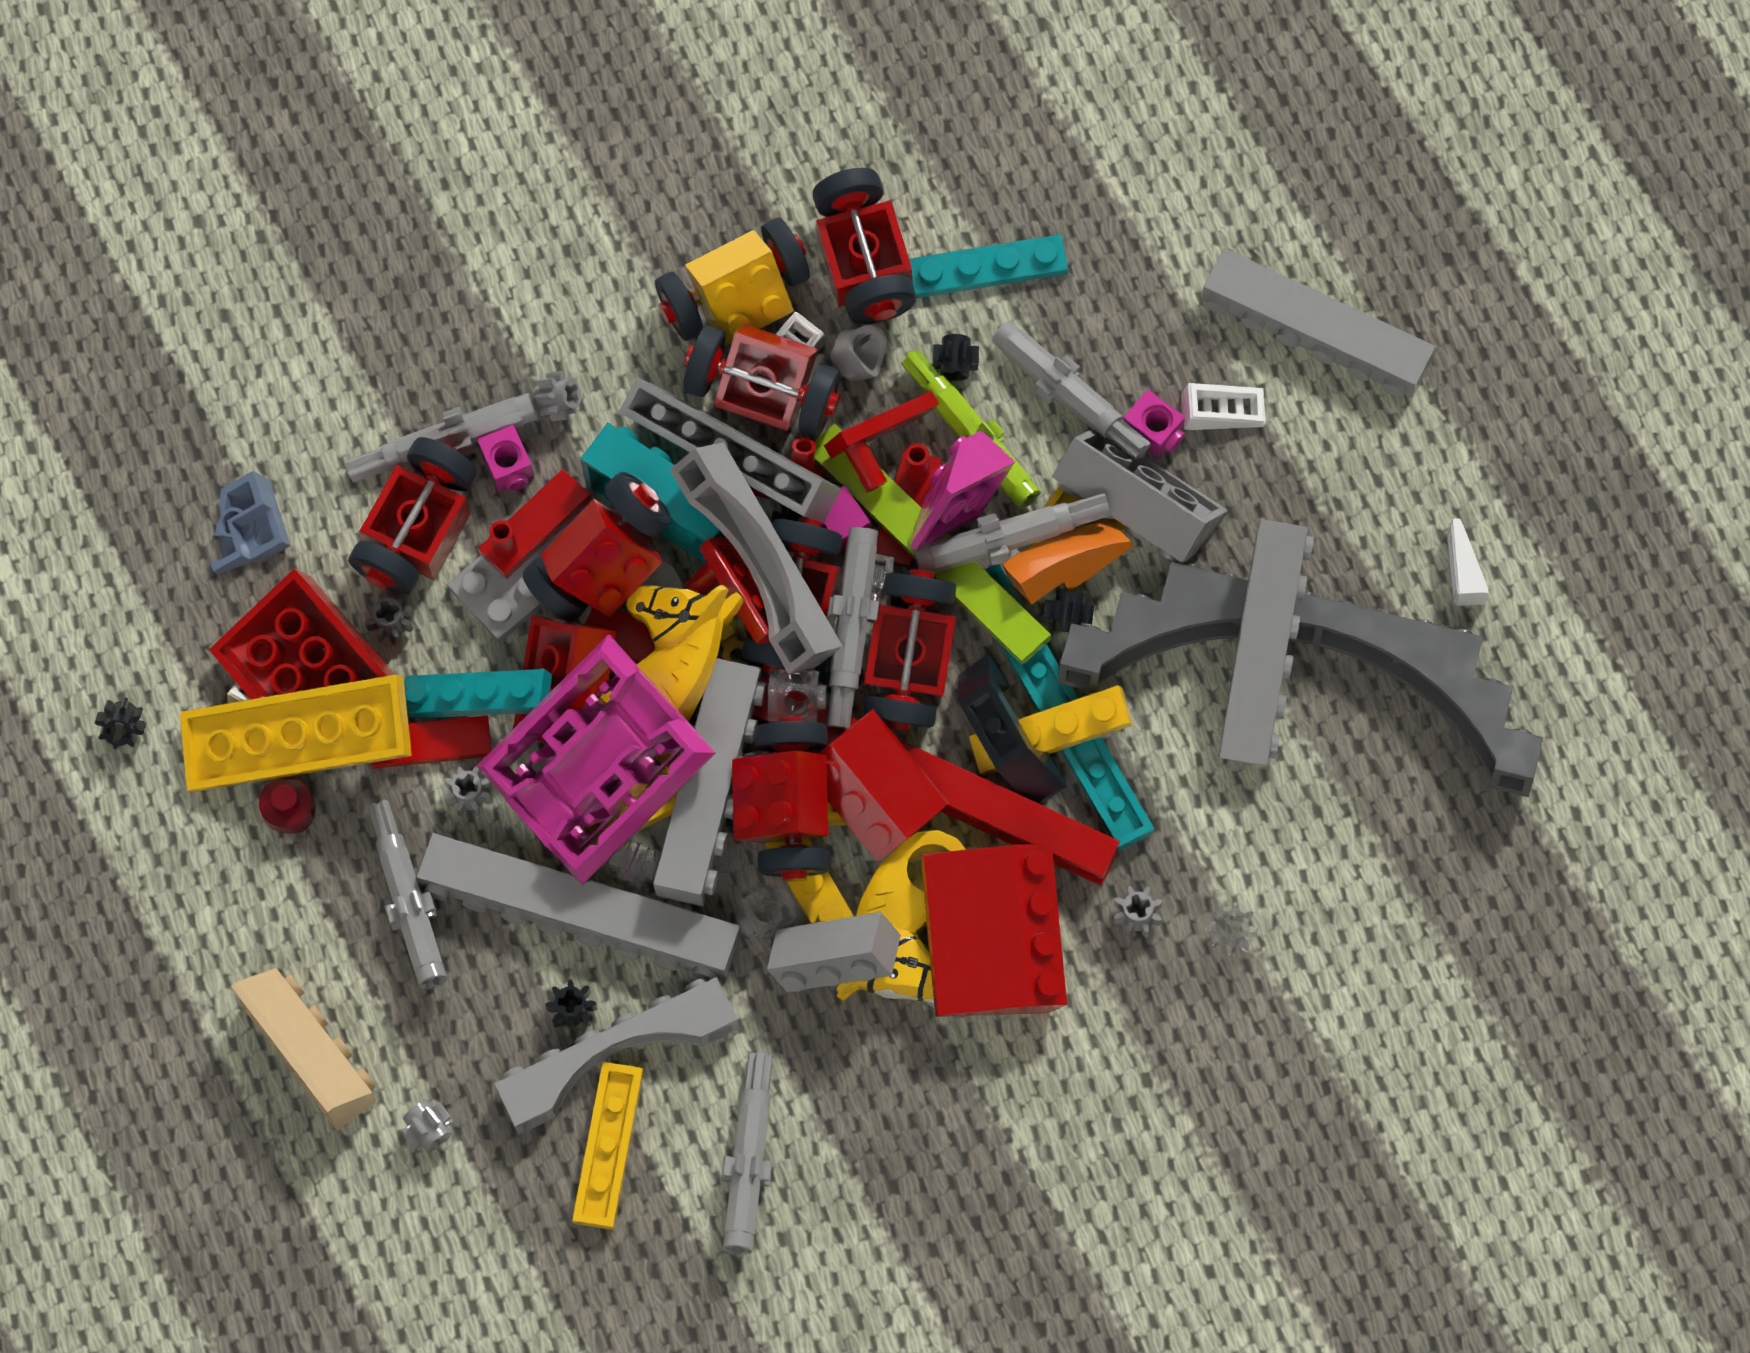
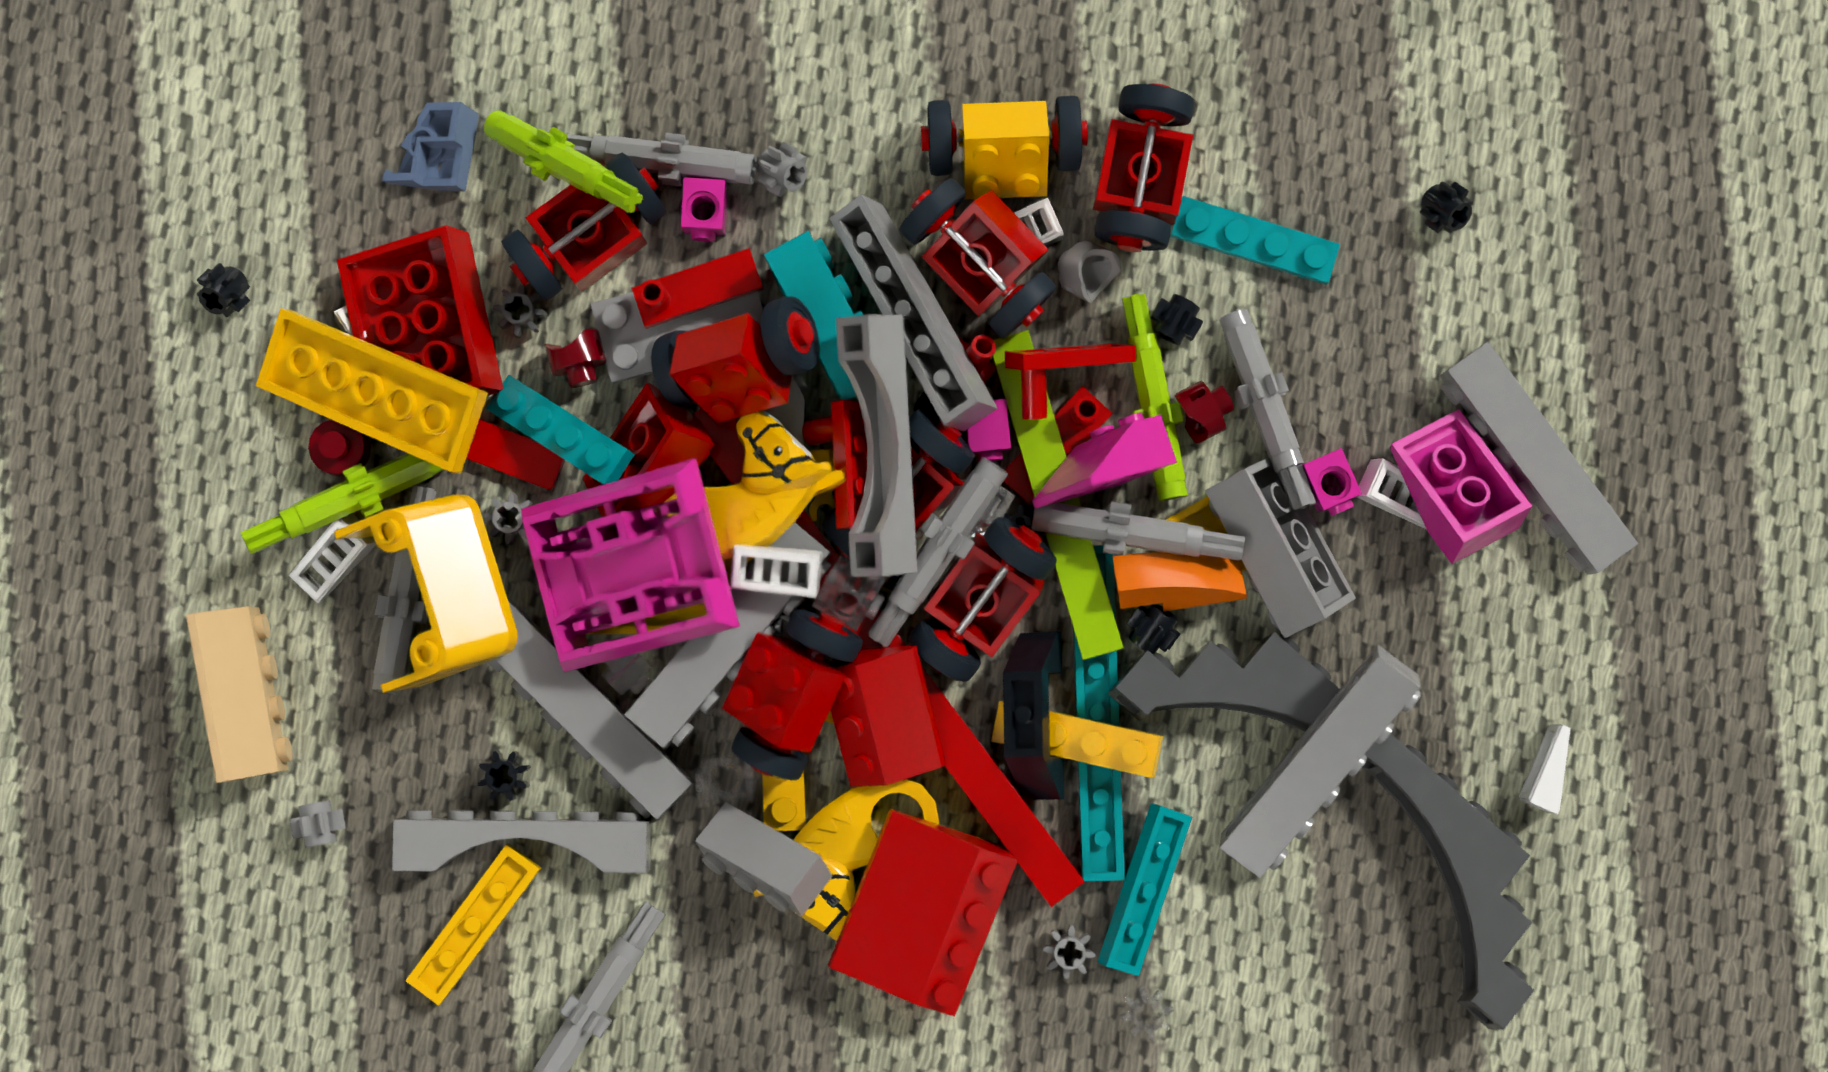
camera: 25 degrees right, 15 degrees up
(325, 830) = (359, 491): none -> lime piece
(340, 906) = (344, 566): none -> white slope
(359, 472) = (556, 157): none -> lime piece
(459, 631) = (577, 358): none -> dark red piece
(479, 870) = (456, 581): none -> yellow windscreen
(748, 674) = (792, 587): none -> white slope
(1018, 416) = (1204, 409): none -> dark red piece
(1133, 162) = (1446, 207): none -> black gear
(1176, 829) = (1144, 889): none -> teal plate
(1264, 375) = (1459, 486): none -> dark pink slope

